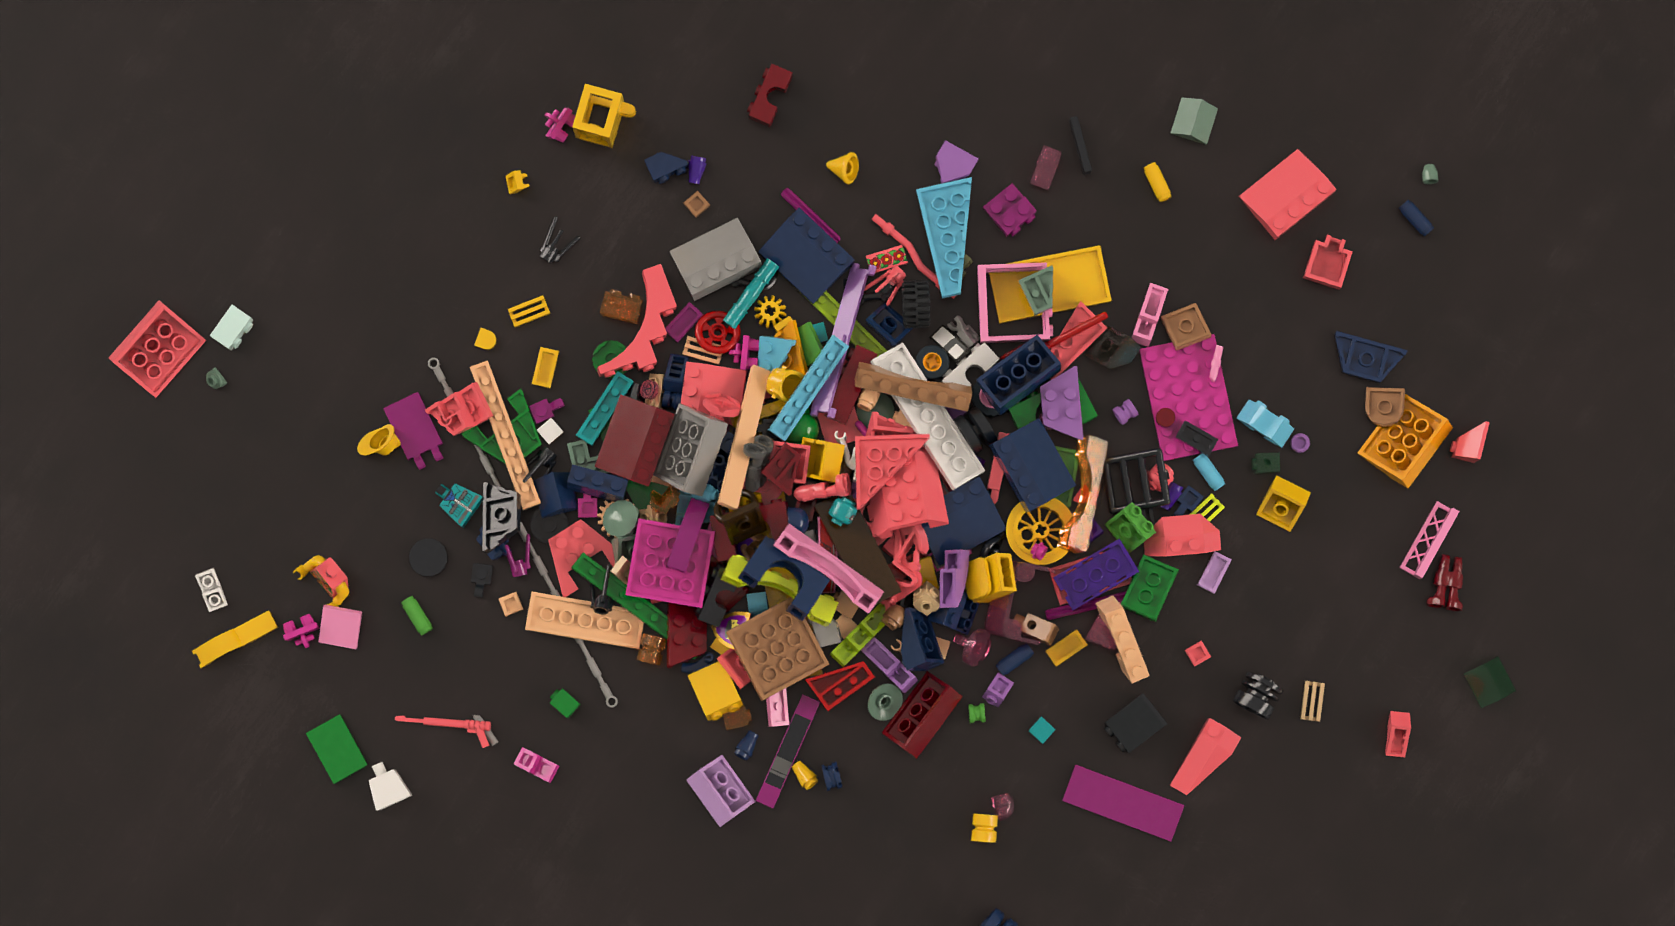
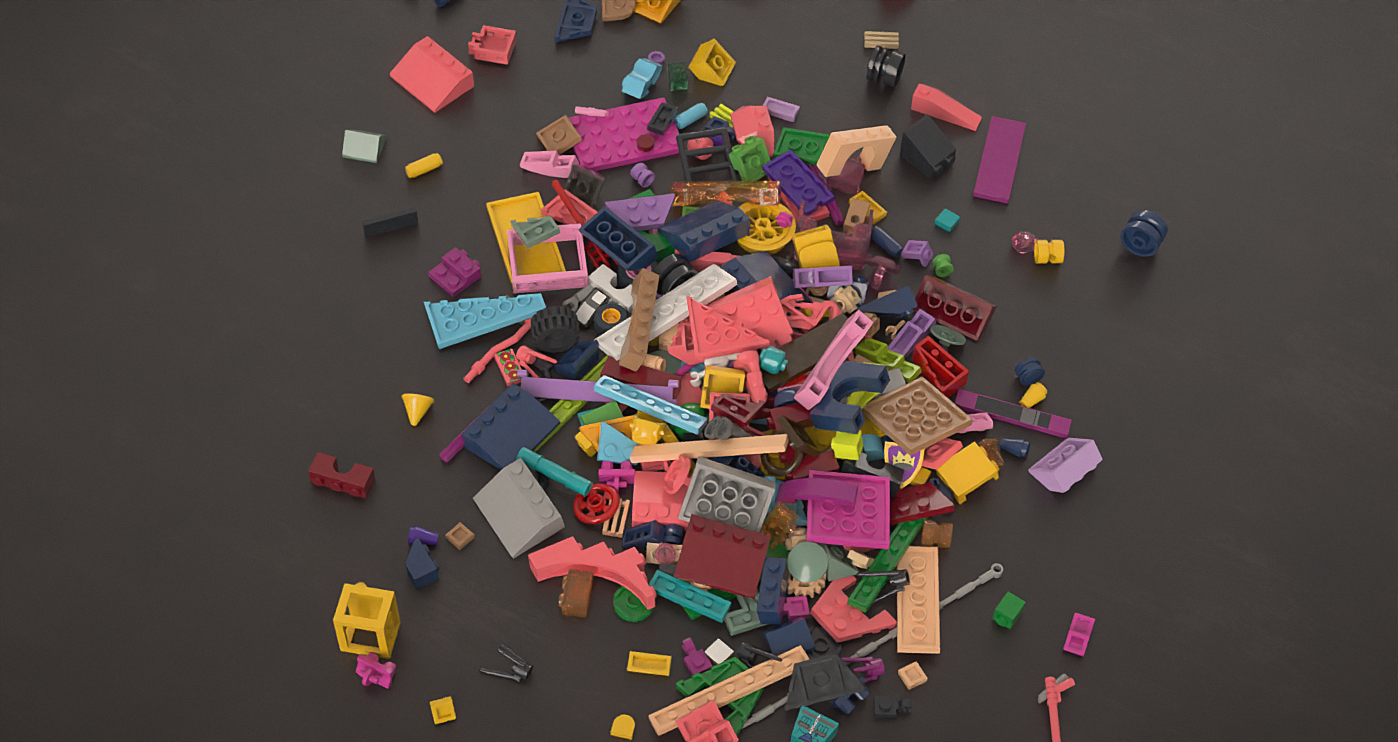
camera: 95 degrees left, 30 degrees down
(526, 304) = (580, 671): yellow tile -> none
(683, 322) = (586, 535): magenta tile -> none
(774, 306) = (571, 457): yellow gear -> none
(954, 163) = (409, 318): medium lavender slope -> none
(1046, 167) = (414, 245): clear pink slope -> none
(1197, 653) = (855, 116): coral tile -> none

